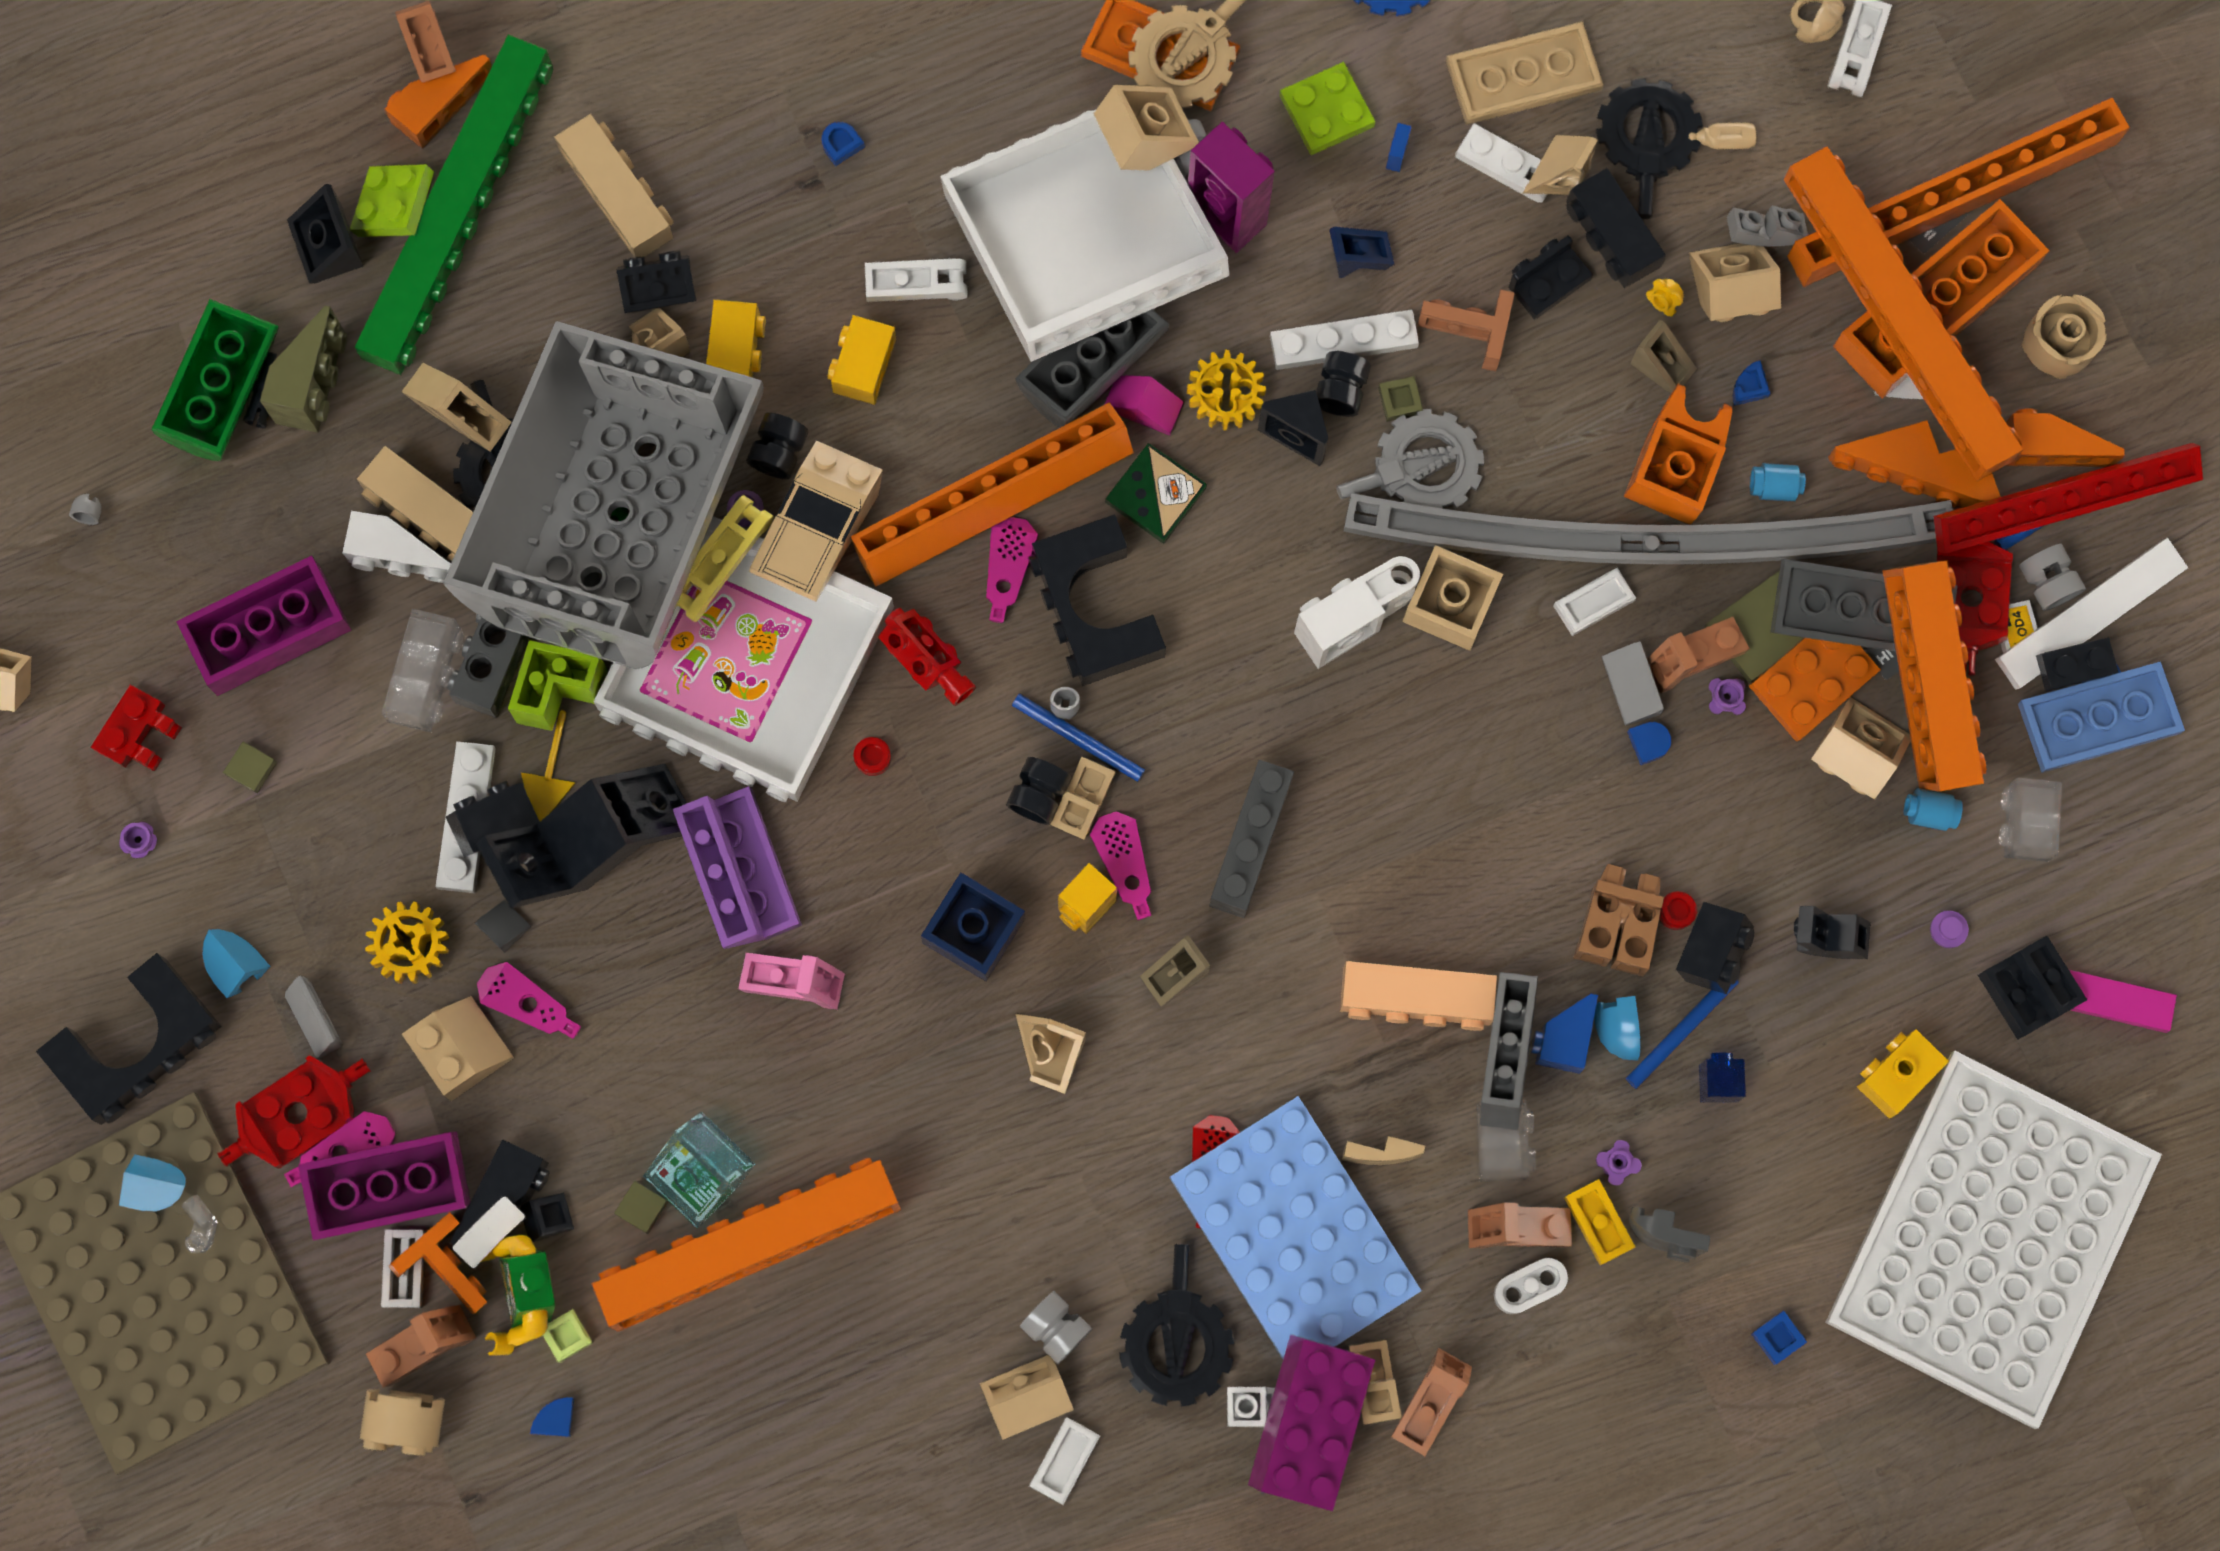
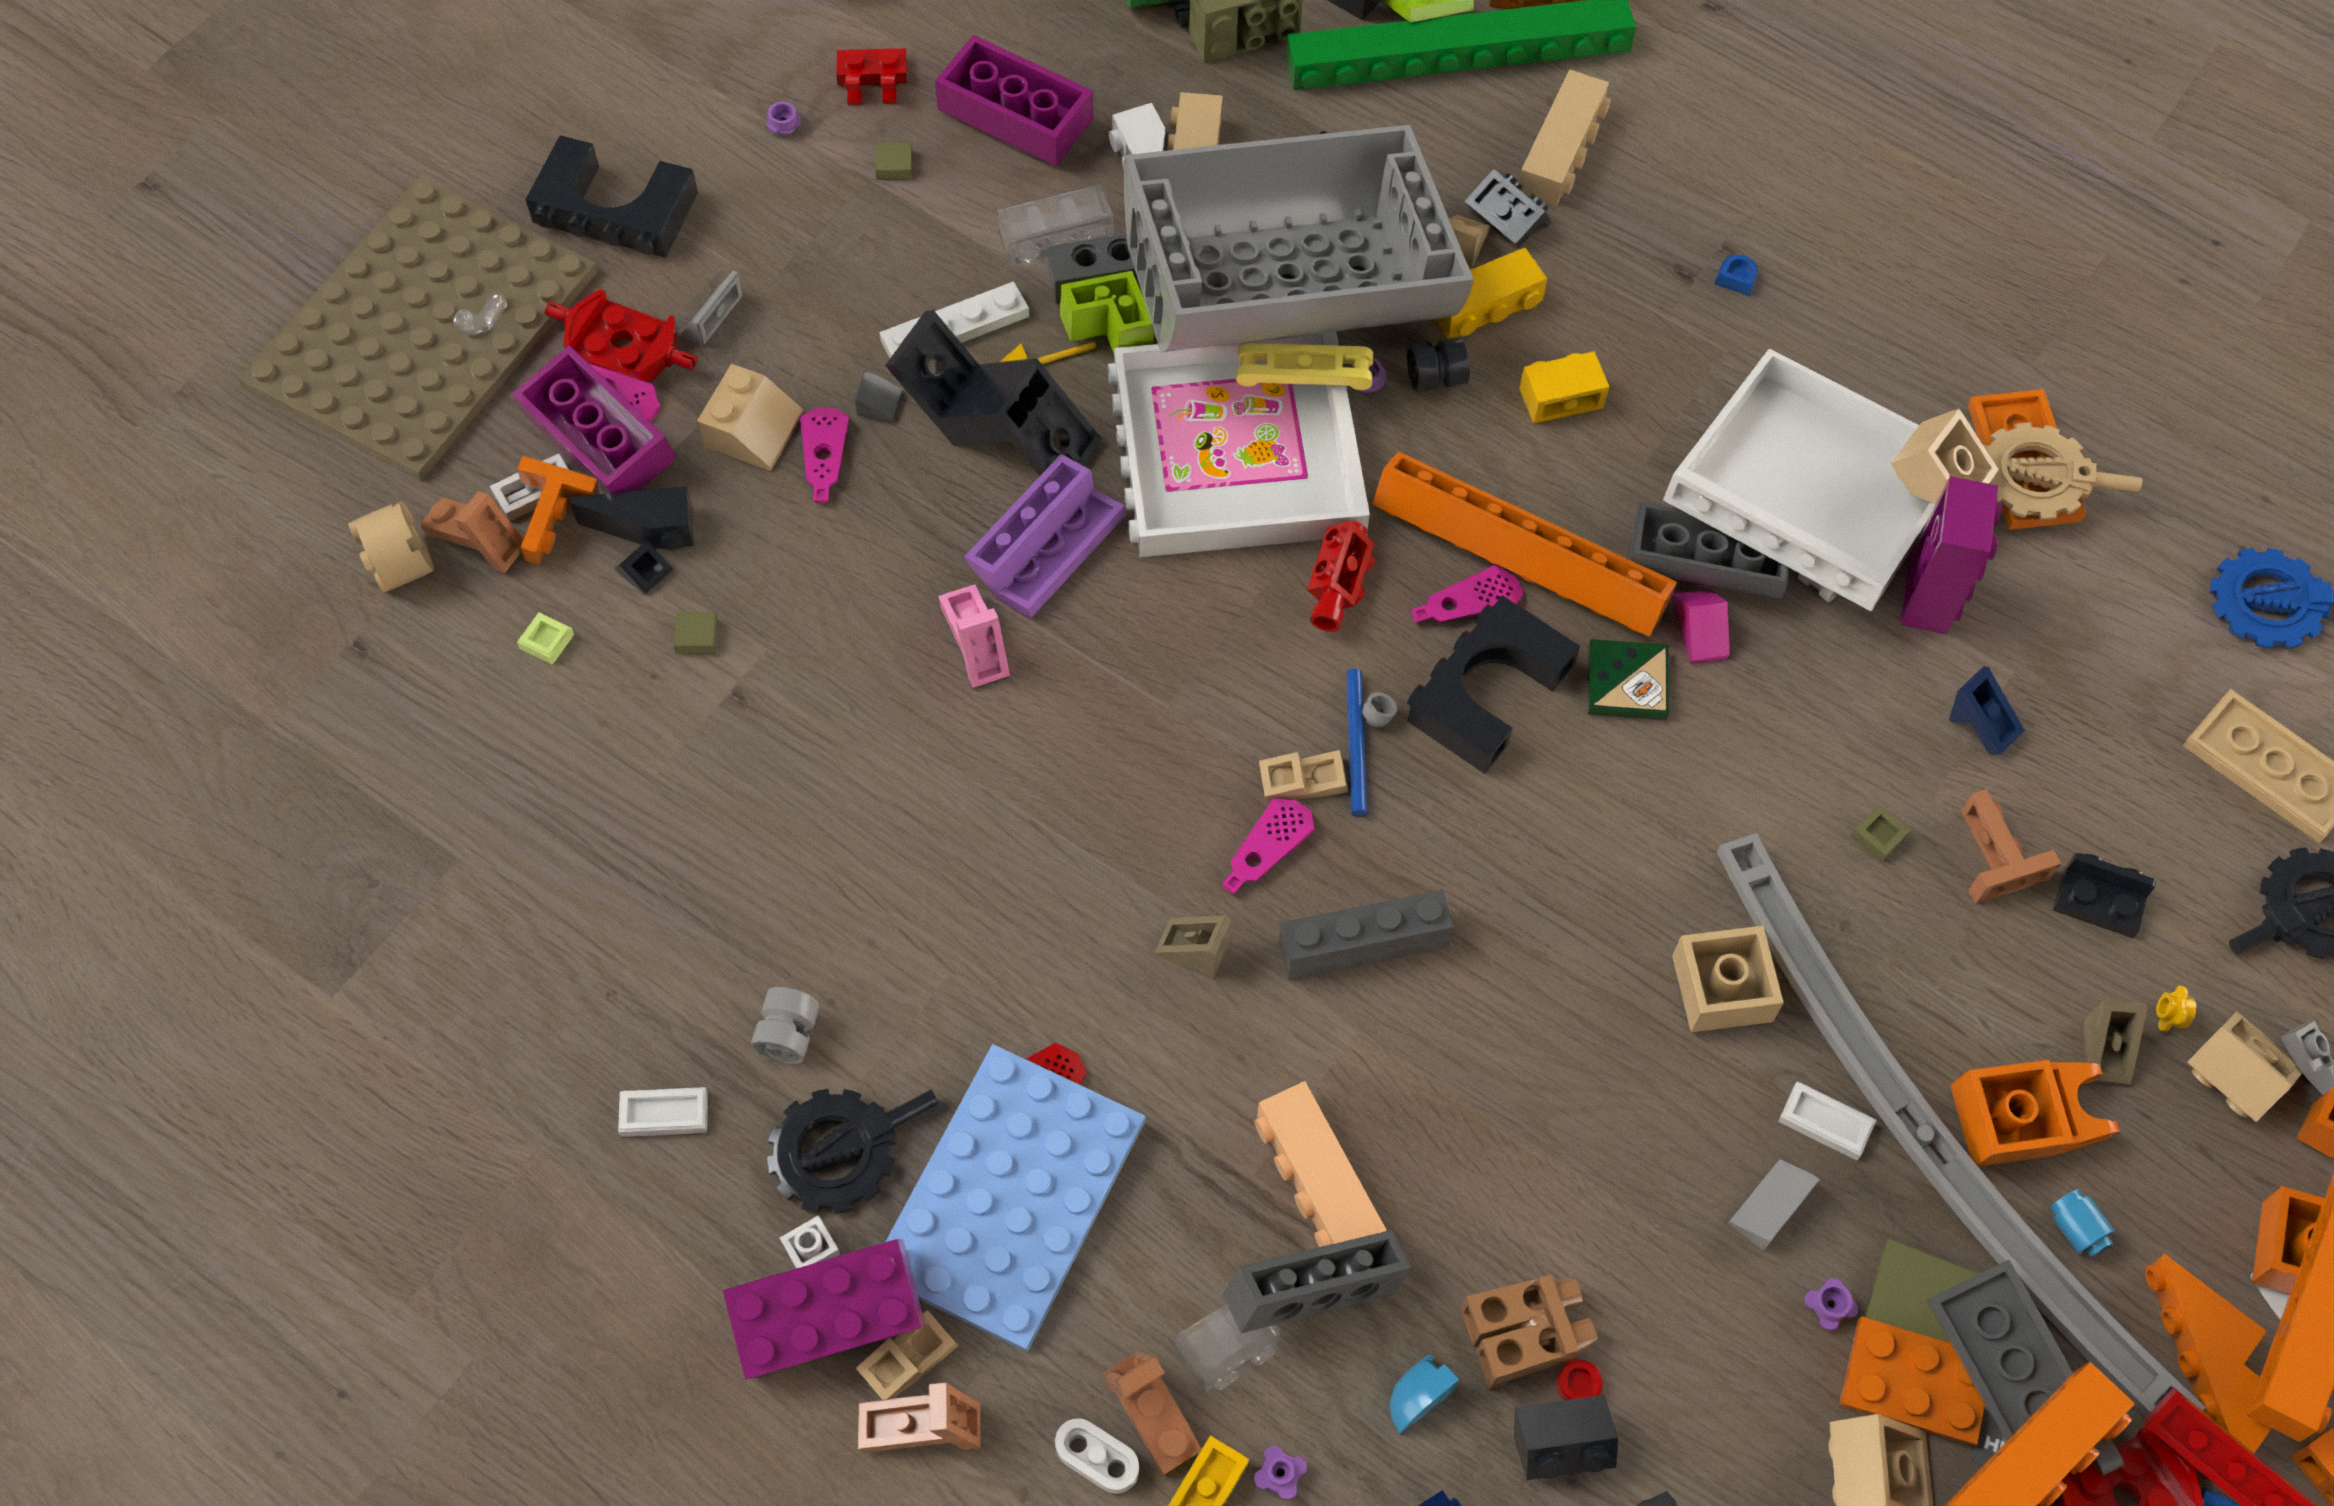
camera: 60 degrees right, 15 degrees down
(151, 1184) = (494, 262): dark azure brick -> none
(231, 961) = (723, 230): dark azure brick -> none
(394, 949) = (817, 337): yellow gear -> none
(456, 406) = (1291, 112): tan slope -> none
(488, 1231) = (597, 519): white sticker -> none
(501, 811) = (976, 332): black brick -> none
(526, 1291) = (562, 575): torso -> none
(554, 1418) = (465, 669): blue tile -> none
(698, 1169) = (757, 653): clear light blue slope -> none
(745, 1246) = (707, 722): orange brick -> none
(817, 520) = (1378, 419): tan slope -> none
(872, 756) = (1220, 589): red tile -> none
(915, 280) = (1665, 389): white plate -> none
(973, 927) = (1118, 745): dark blue brick -> none
(1026, 1396) = (703, 1041): tan panel -> none
(1038, 790) = (1282, 730): black wheel -> none
(1050, 1050) = (1049, 884): tan slope -> none
(1086, 899) = (1206, 819): yellow brick -> none
(1241, 376) = (1790, 680): yellow gear -> none
(1296, 424) = (1782, 745): black slope -> none
(1327, 108) = (2093, 620): lime plate -> none
(1343, 379) = (1852, 769): black wheel -> none
(1354, 610) = (1645, 894): white brick -> none
(1357, 336) = (1896, 754): white plate -> none
(1393, 1152) = (1145, 1237): tan slope -> none
(1398, 147) = (2110, 694): blue tile -> none
(1401, 471) = (1815, 871): light grey bar -> none
(1498, 159) = (2177, 798): white plate -> none
(1562, 165) = (2216, 842): tan slope -> none
(1566, 1037) = (1375, 1342): blue slope -> none
(1614, 228) = (2198, 924): black brick -> none
(1650, 741) = (1729, 1255): blue tile -> none
(1676, 1036) = (1454, 1459): blue bar -> none
(1690, 654) = (1850, 1239): nougat bracket -> none
(1751, 385) = (2157, 1145): blue tile -> none

